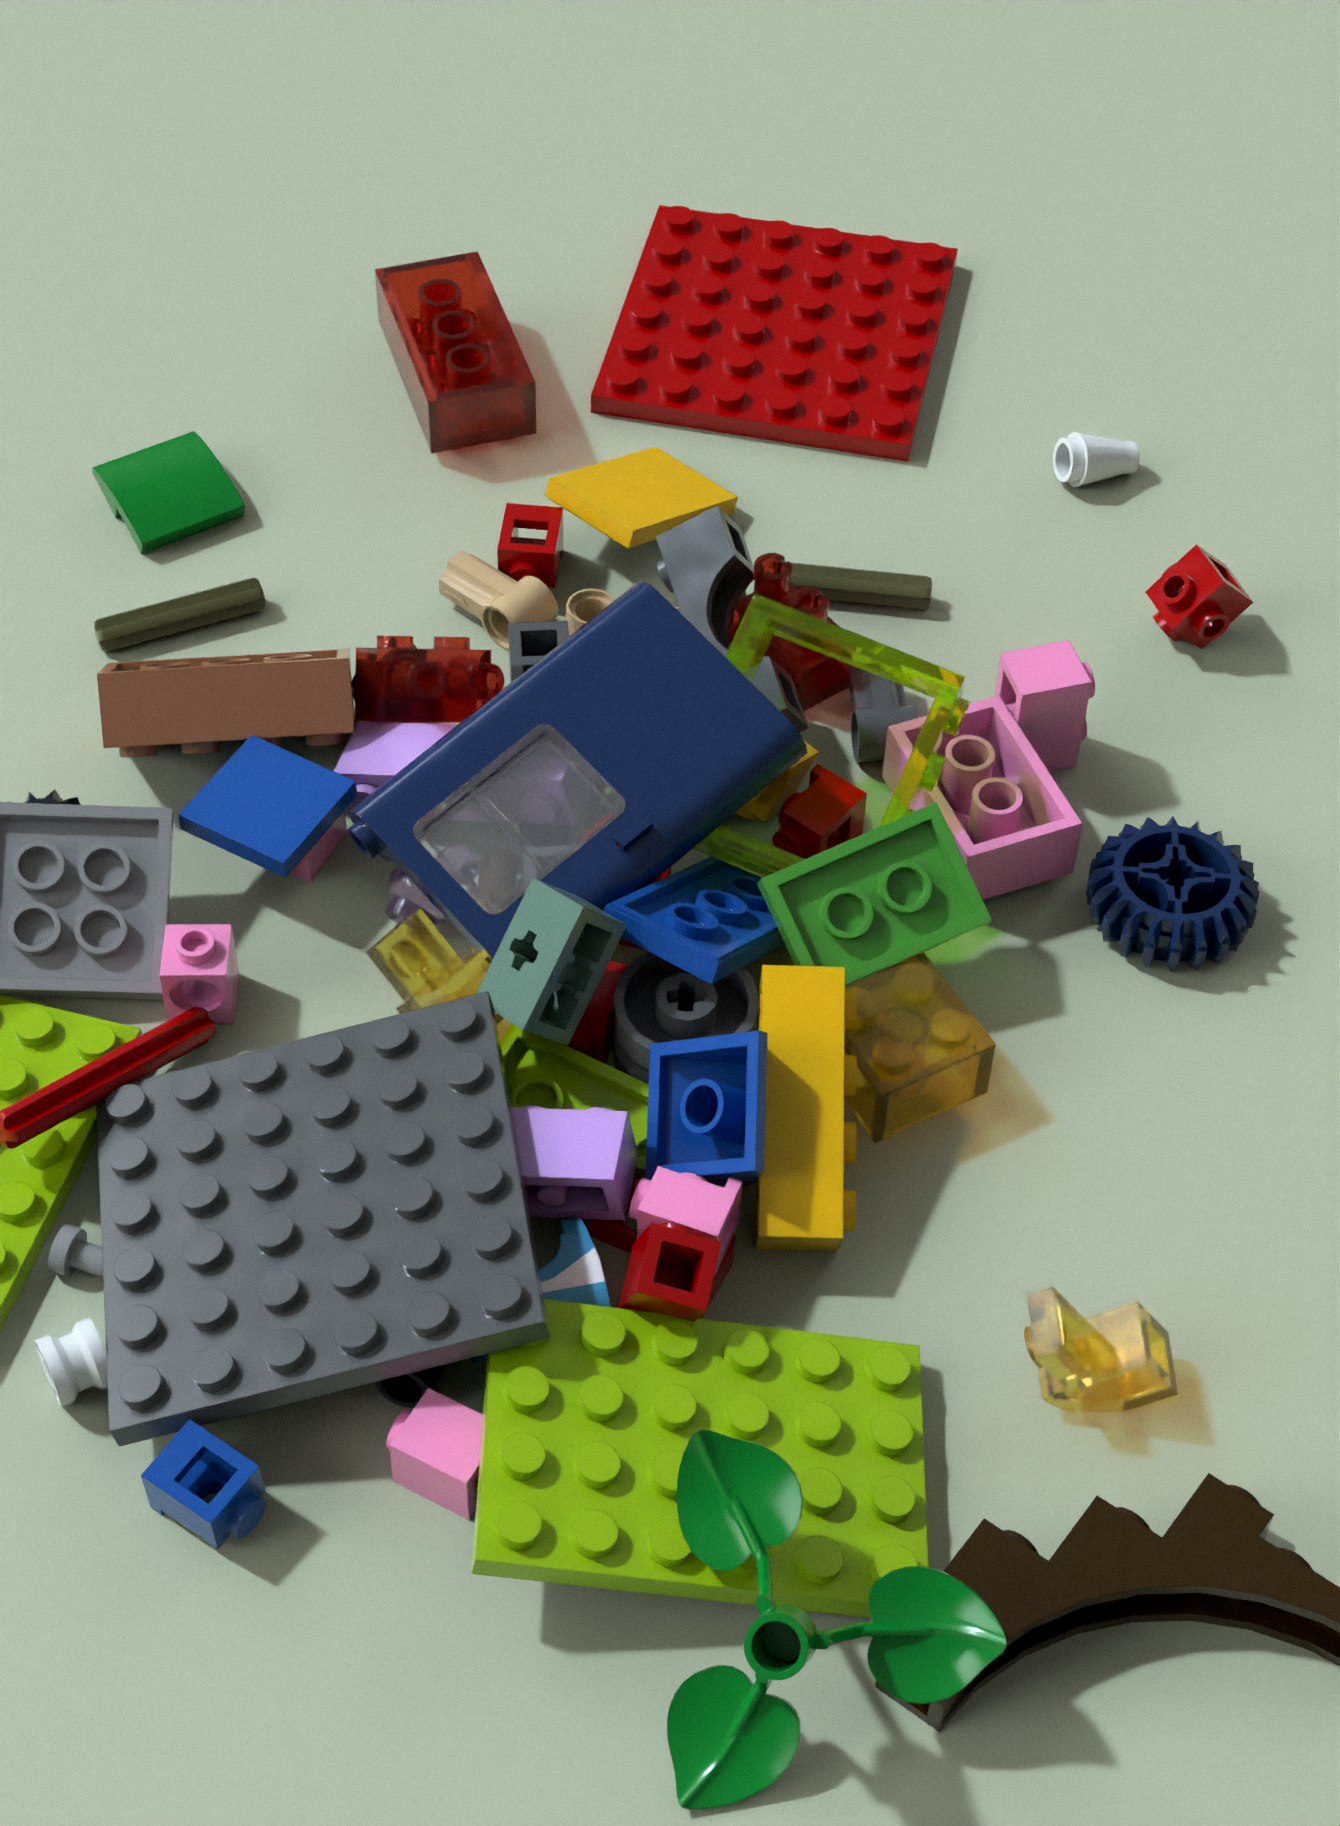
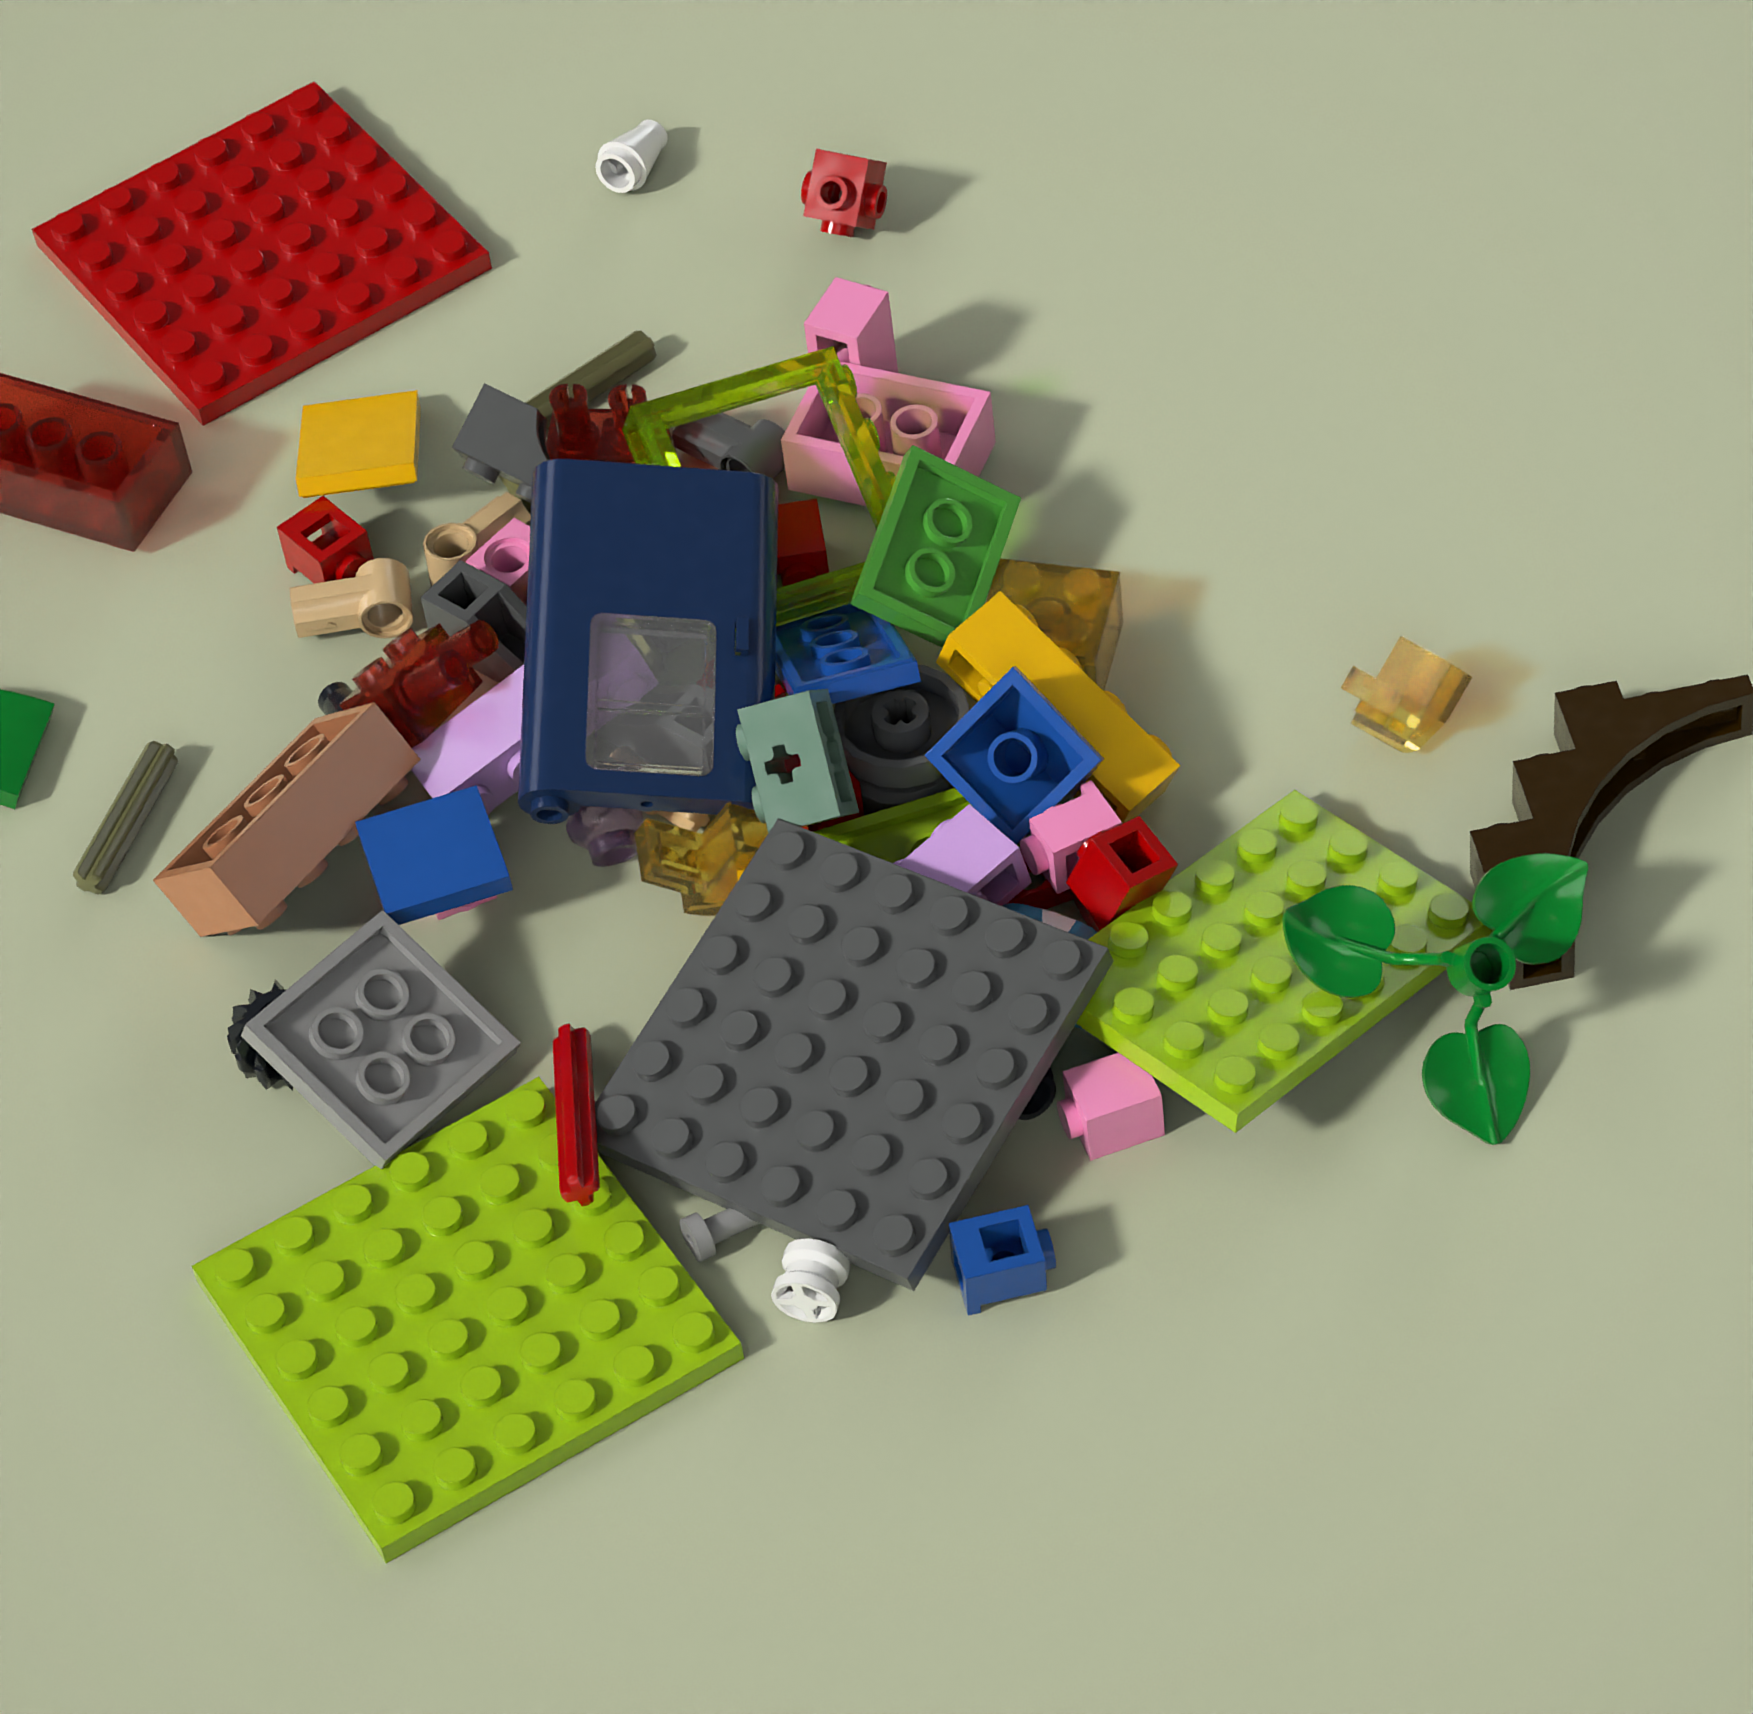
camera: 40 degrees left, 0 degrees up
(200, 970) = (533, 1001): bright pink brick -> none
(1172, 893) = (1081, 411): dark blue gear -> none

